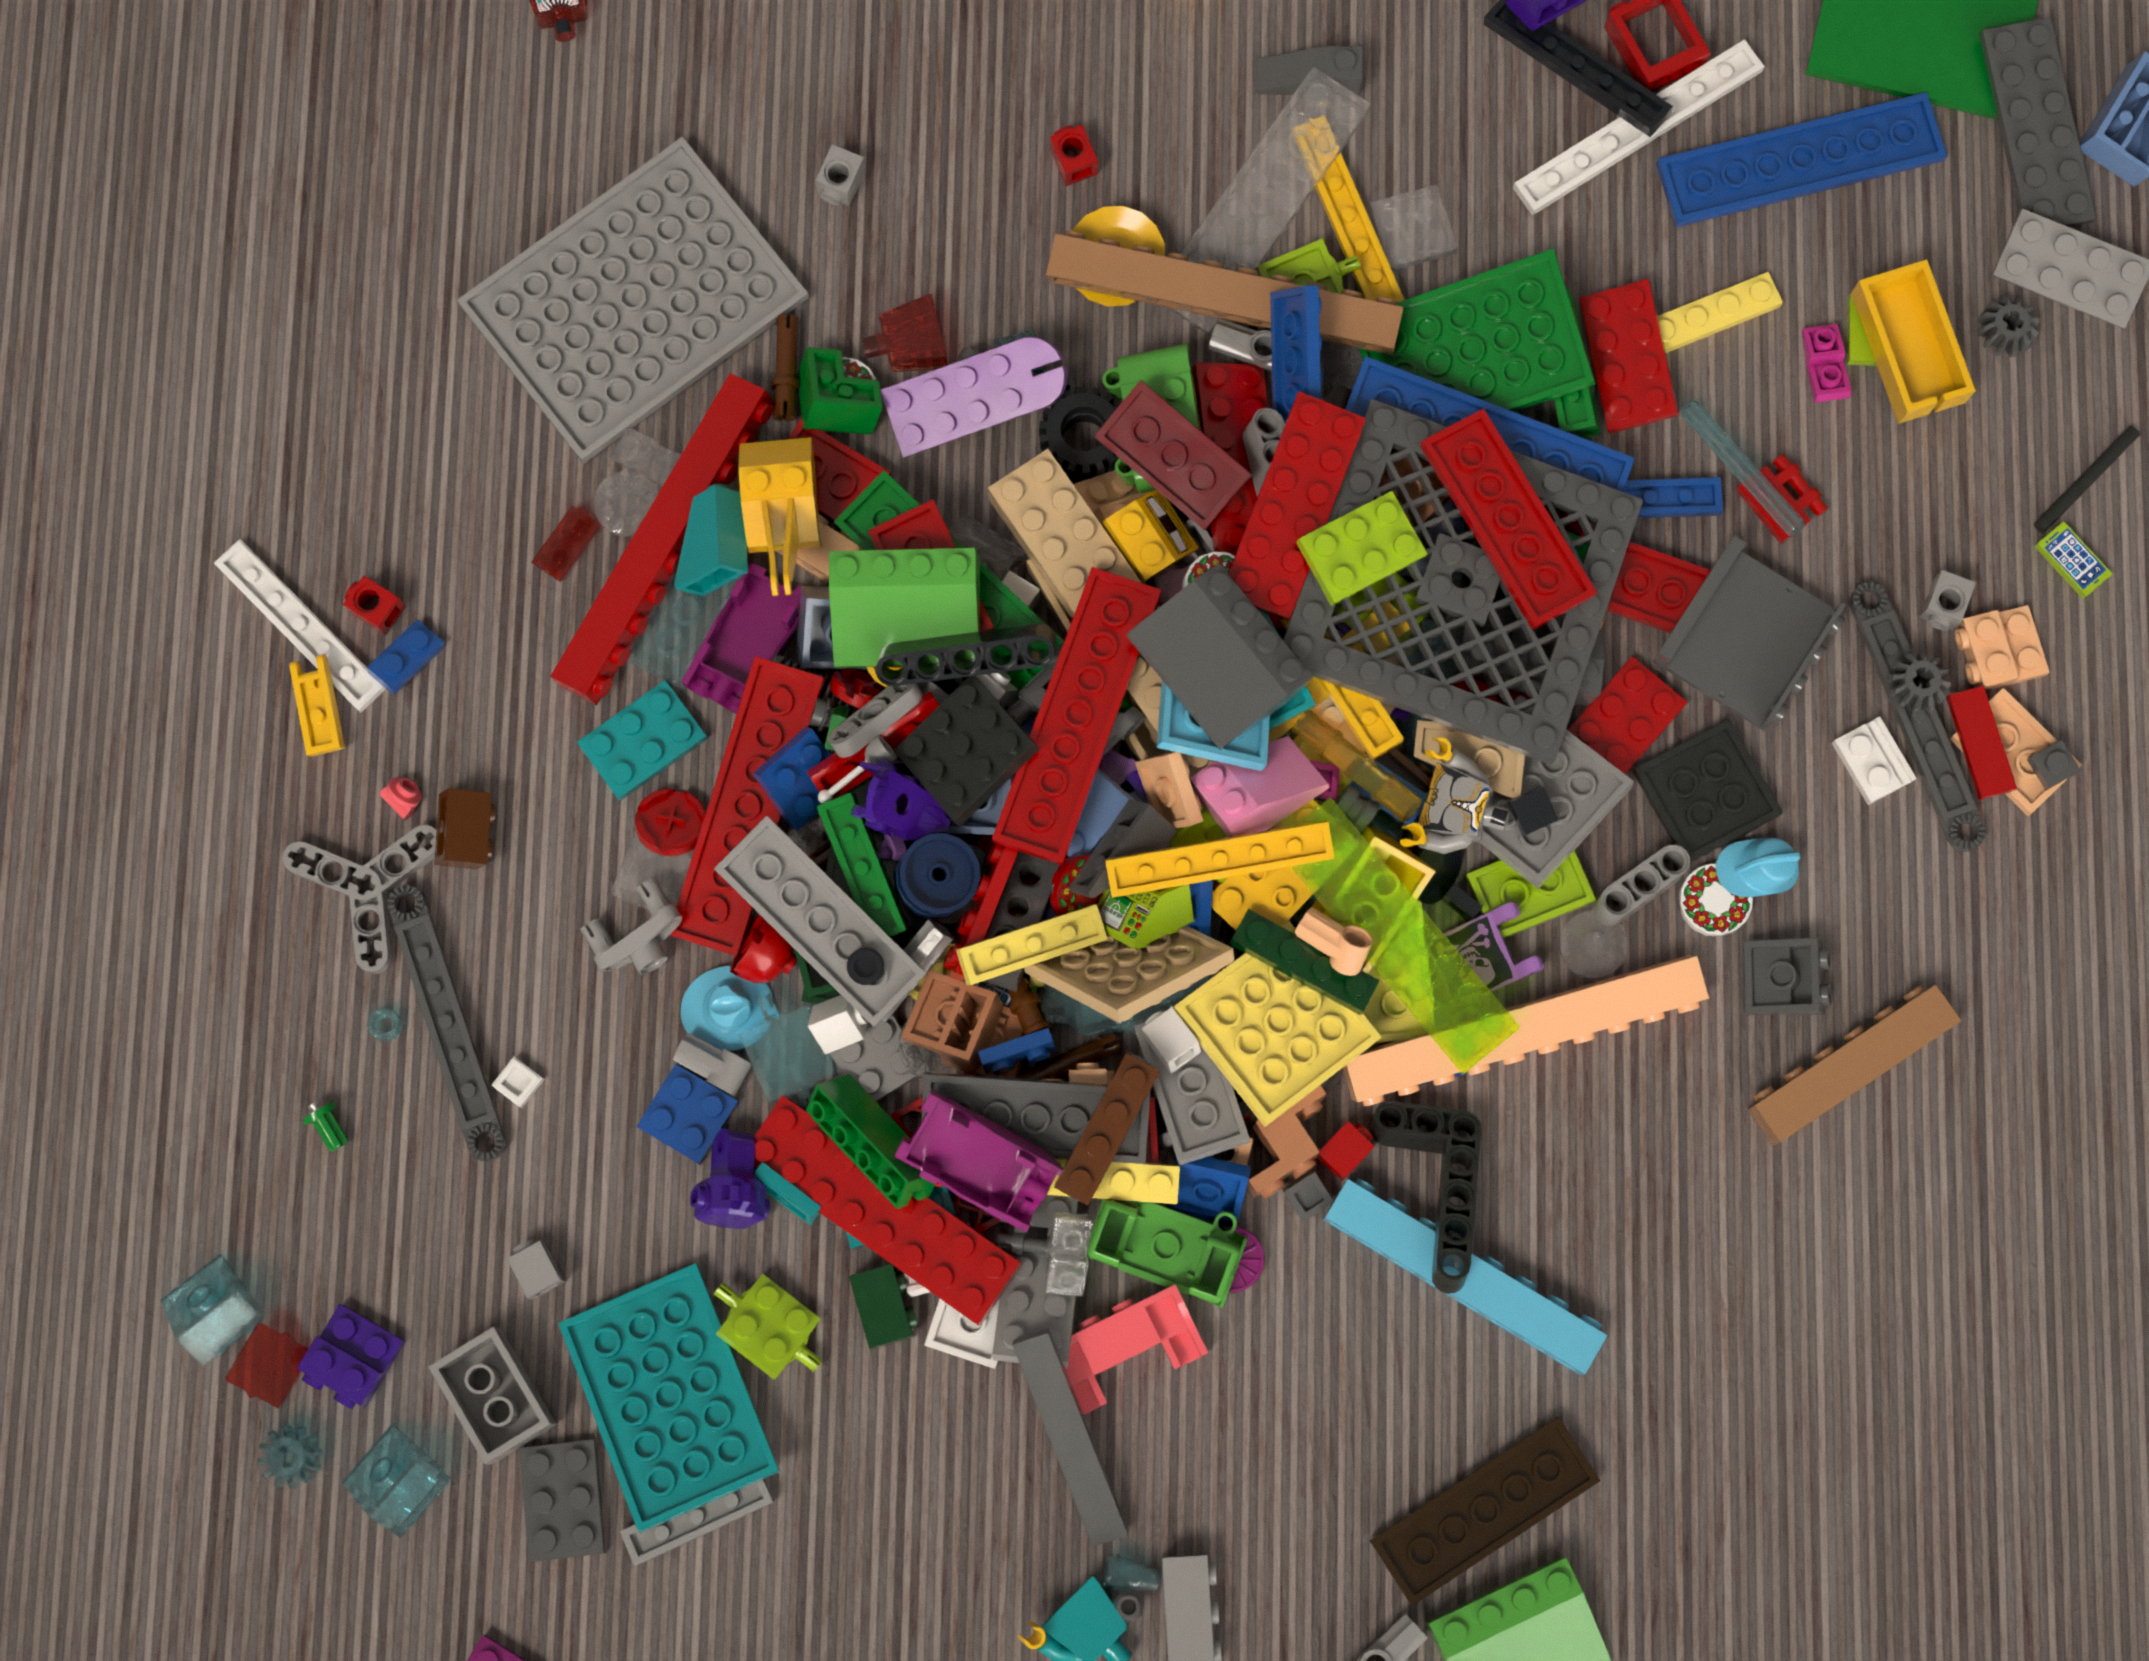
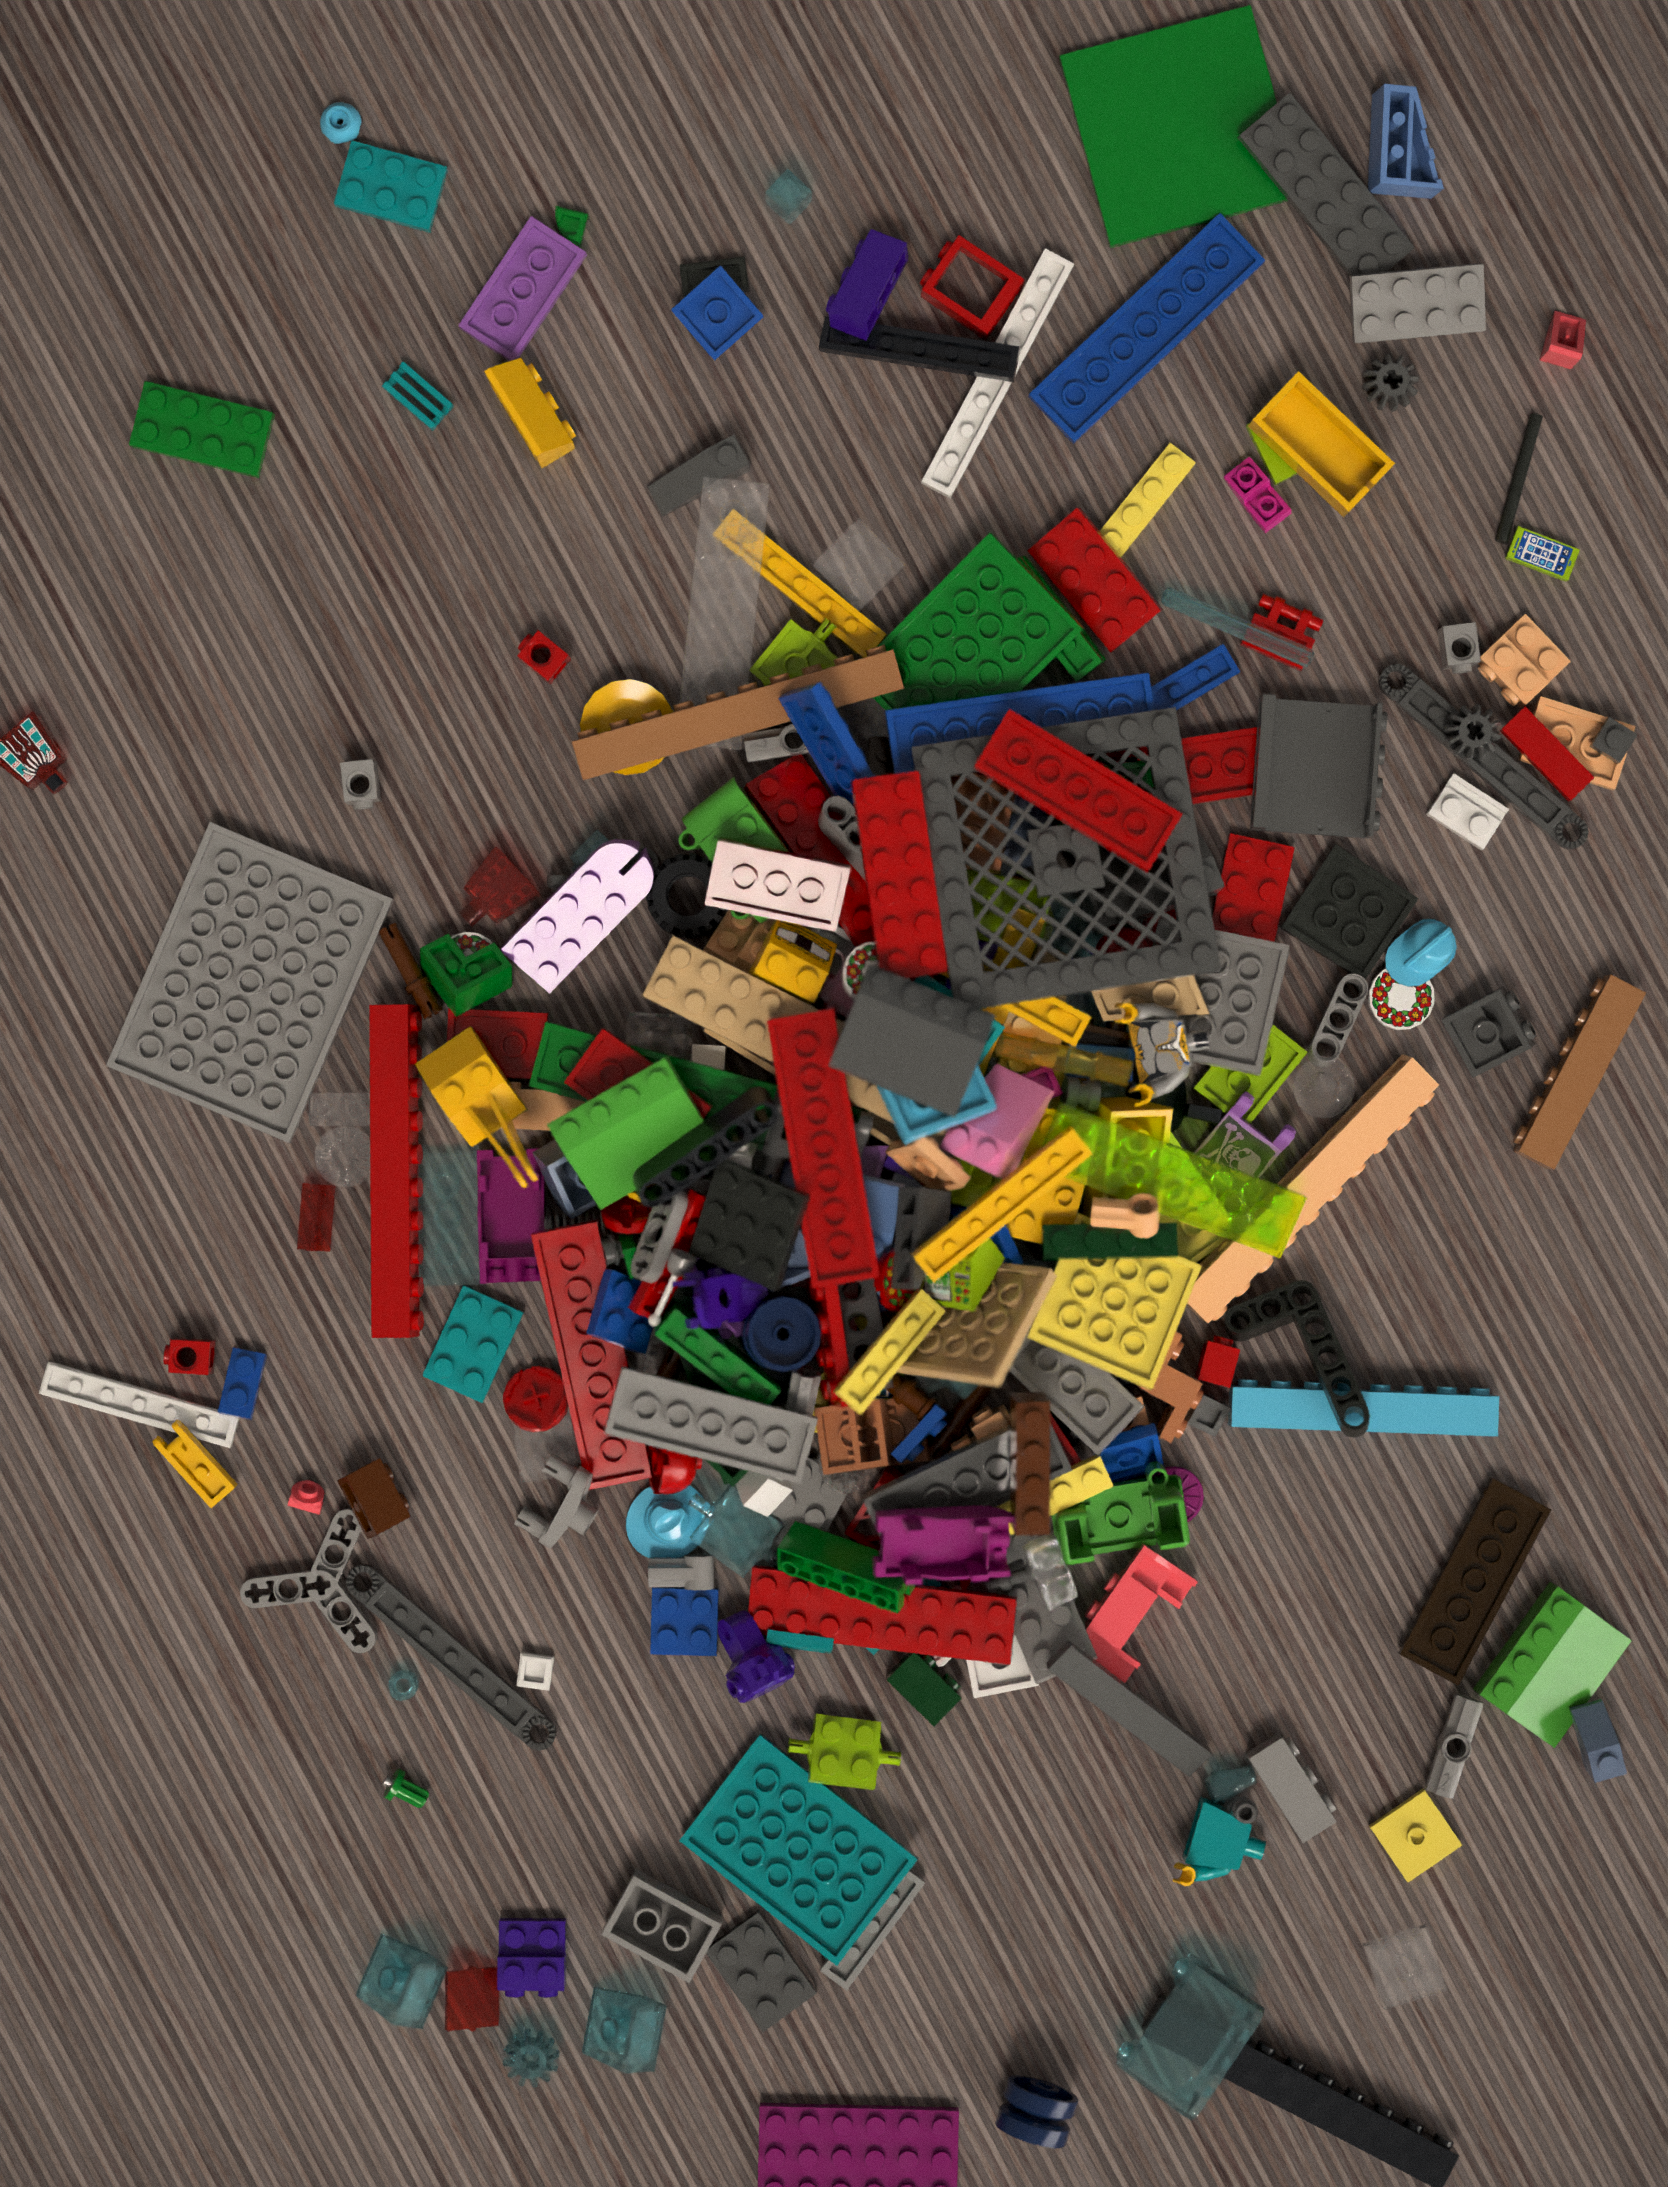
camera: 35 degrees left, 10 degrees up
(535, 1268) = (636, 1808): light grey brick -> none
(713, 542) = (440, 1156): teal slope -> none
(865, 966) = (767, 1441): black tile -> none
(1170, 1039) = (1038, 1361): white brick -> none
(1361, 548) = (974, 882): lime plate -> none
(1532, 810) = (1223, 1017): black tile -> none

